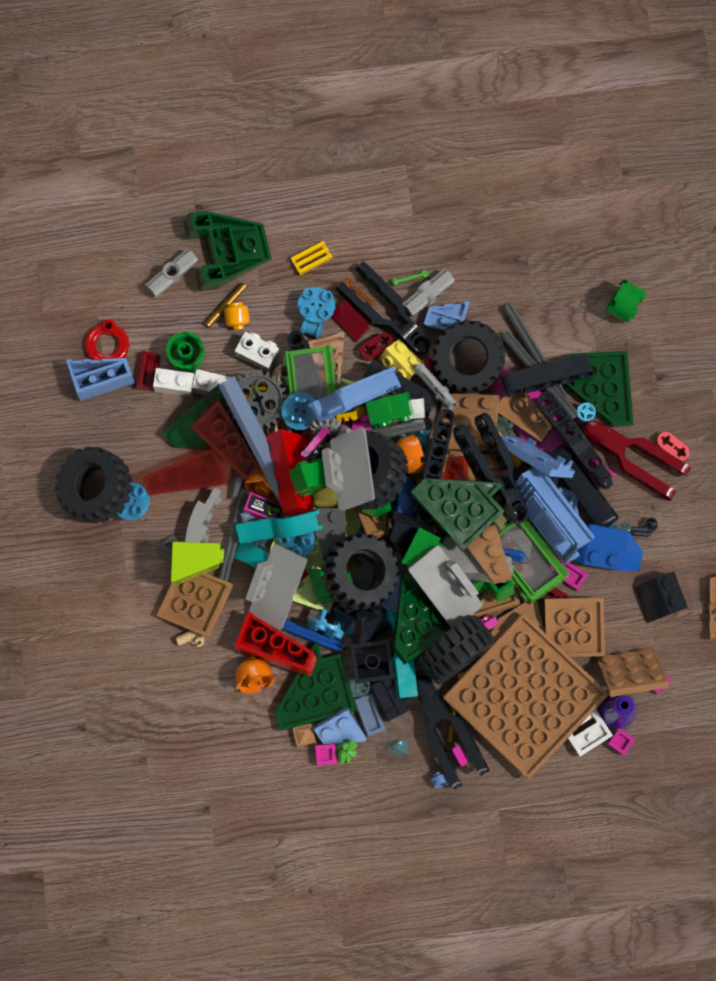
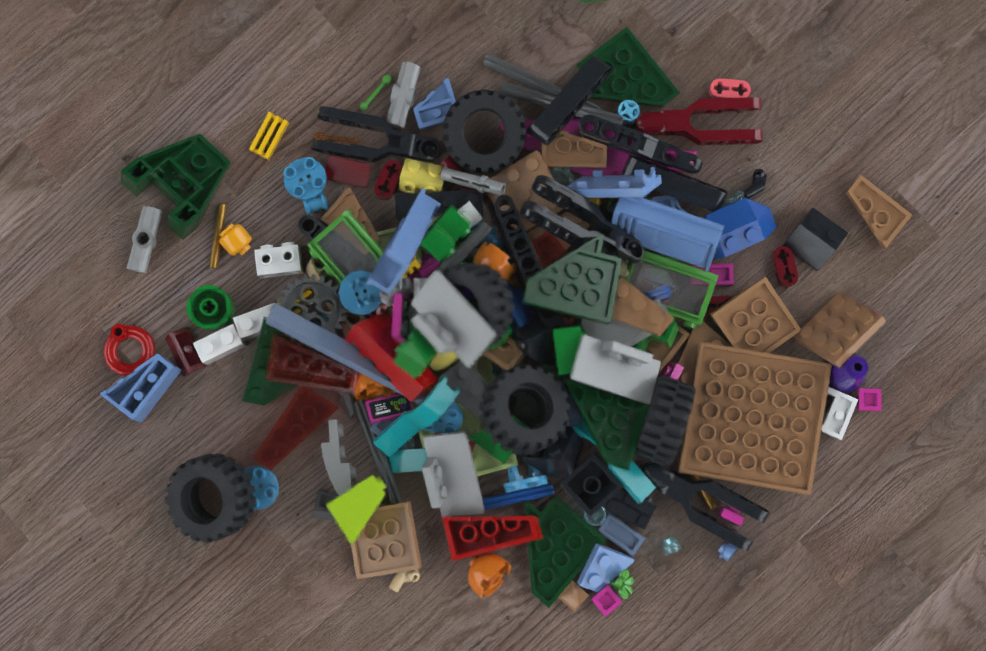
camera: 30 degrees left, 5 degrees up
(621, 600) = (789, 265): none -> dark red beam

